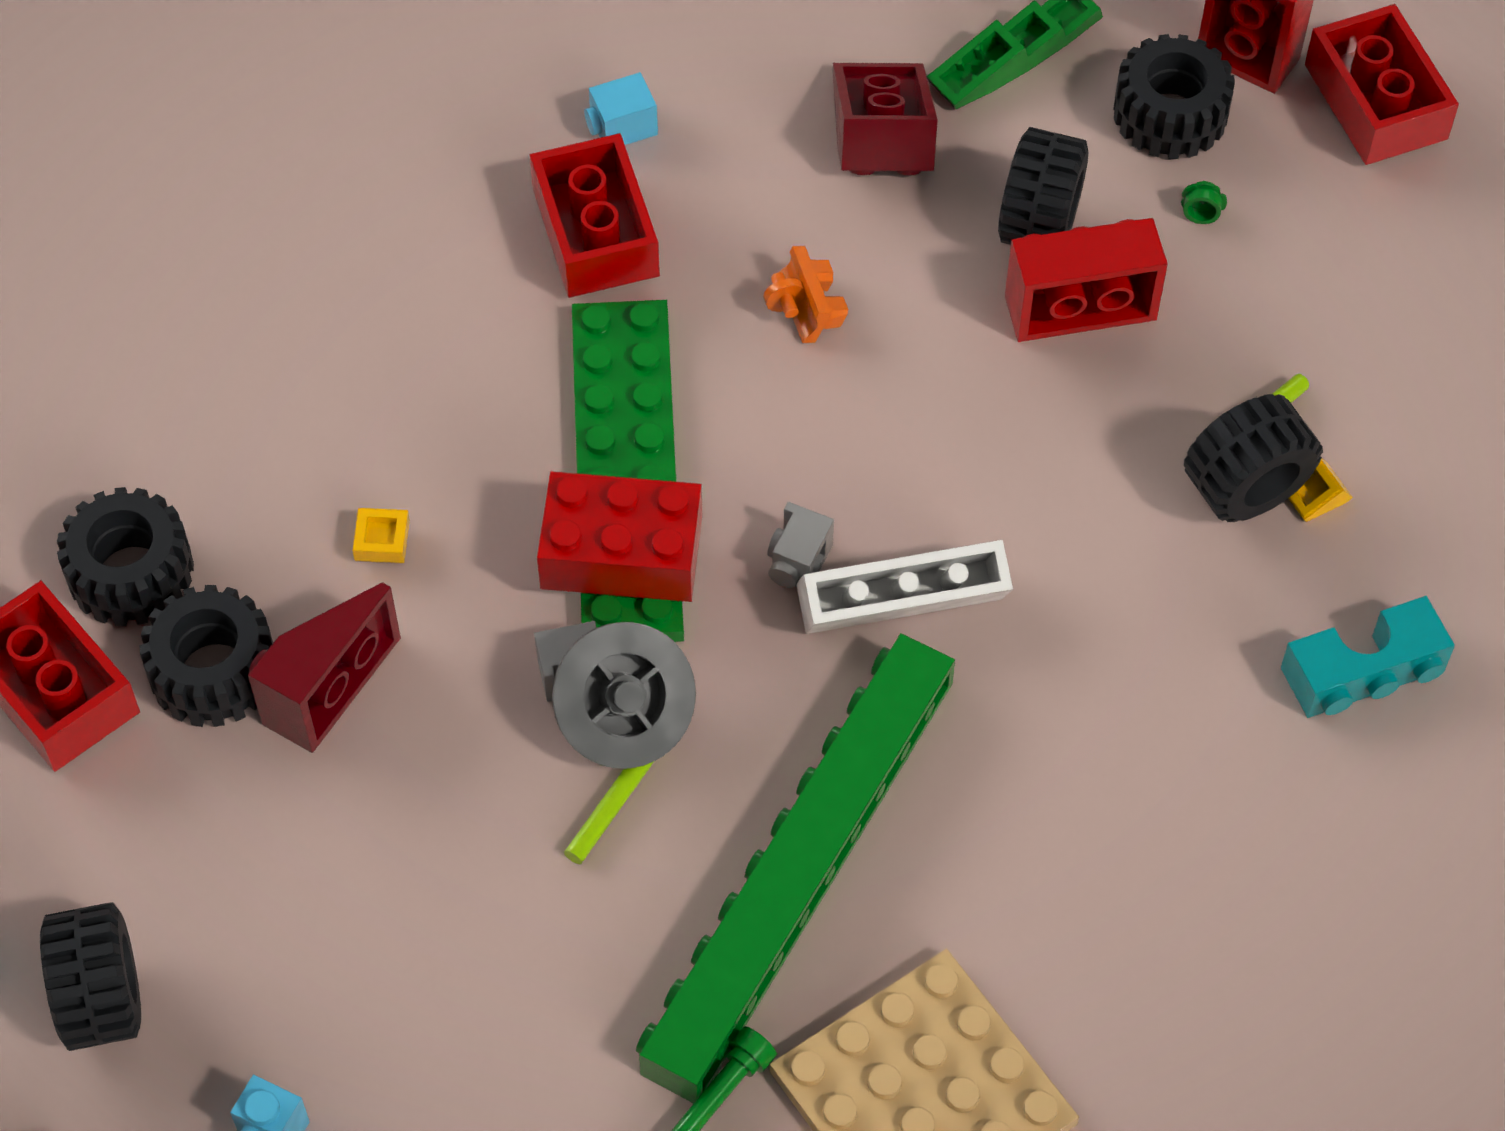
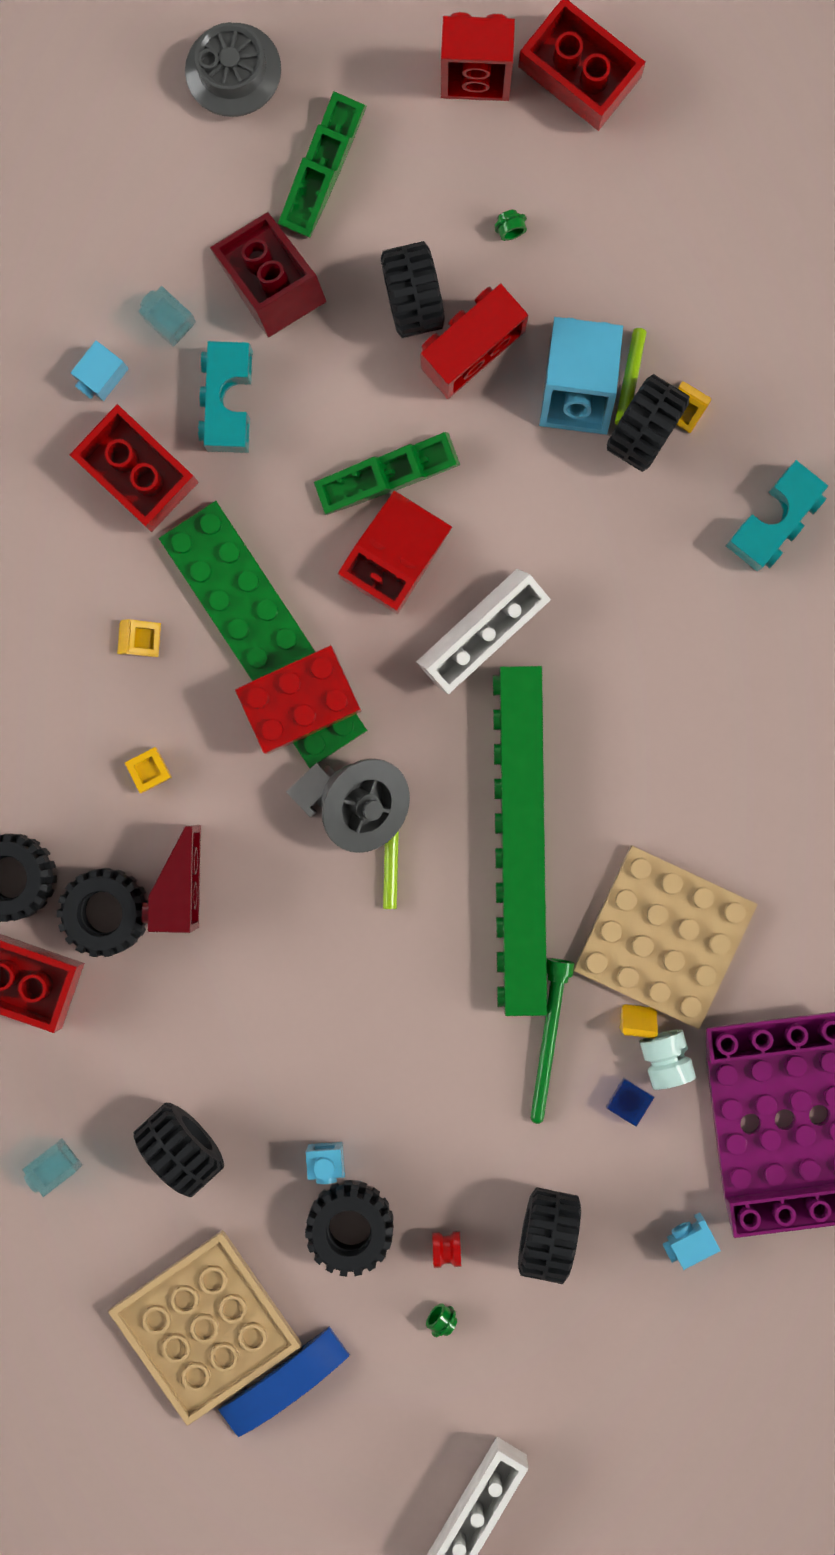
camera: 30 degrees left, 30 degrees up
(474, 397) = (139, 638): none -> yellow slope
(738, 98) = (166, 315): none -> clear light blue brick
(768, 177) = (225, 366): none -> teal arch
(800, 295) = (298, 450): orange hips -> none
(800, 546) = (403, 636): light grey brick -> none
(843, 453) = (394, 552): none -> red slope
(879, 372) = (386, 473): none -> green slope
(1179, 69) = (450, 124): black tyre -> none
(1193, 378) = (581, 375): none -> medium azure slope

